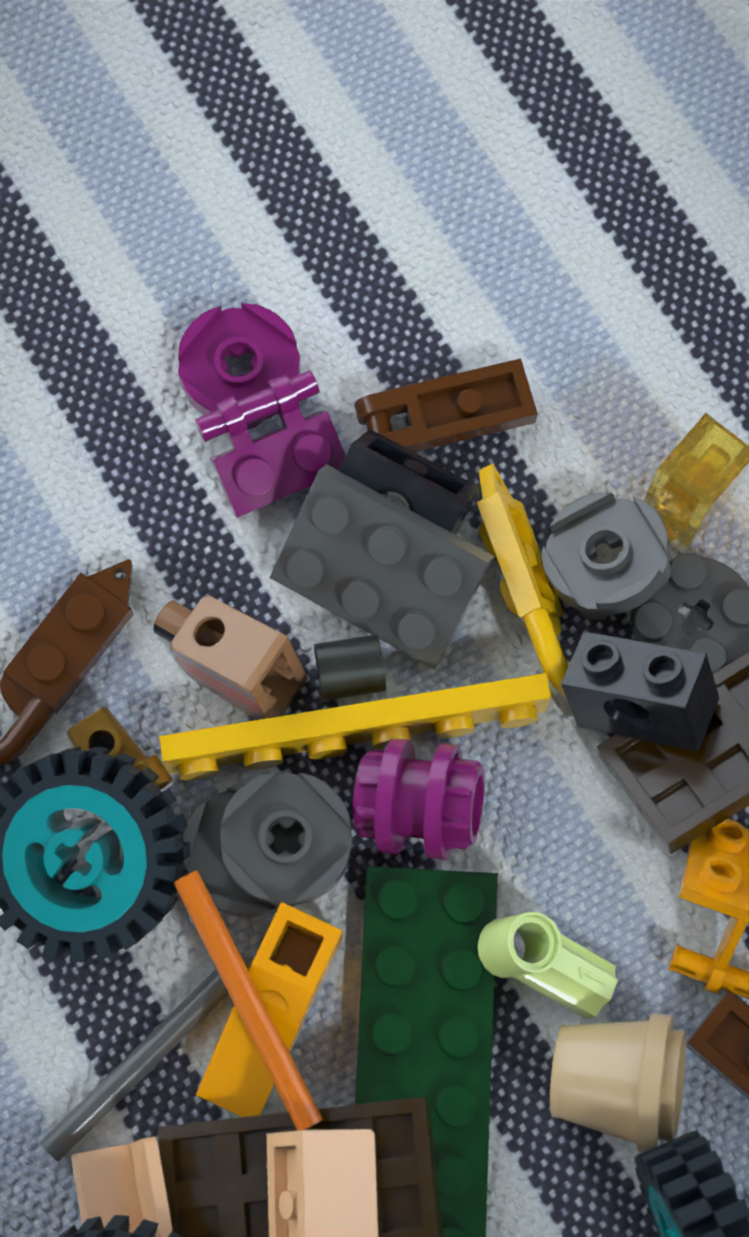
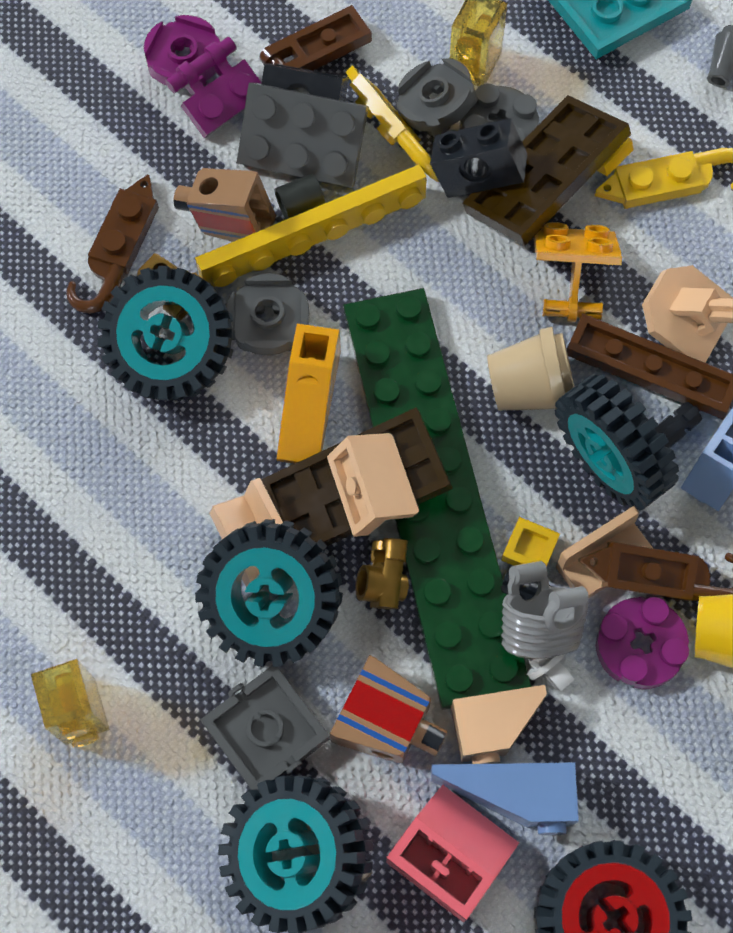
camera: 10 degrees left, 5 degrees down
(135, 1066) = (238, 448): dark grey bar -> none
(248, 1001) = (290, 379): orange bar -> none
(286, 801) = (284, 273): dark grey plate -> none
(419, 799) = (363, 254): magenta piece -> none
(549, 964) = (458, 318): yellowish green piece -> none

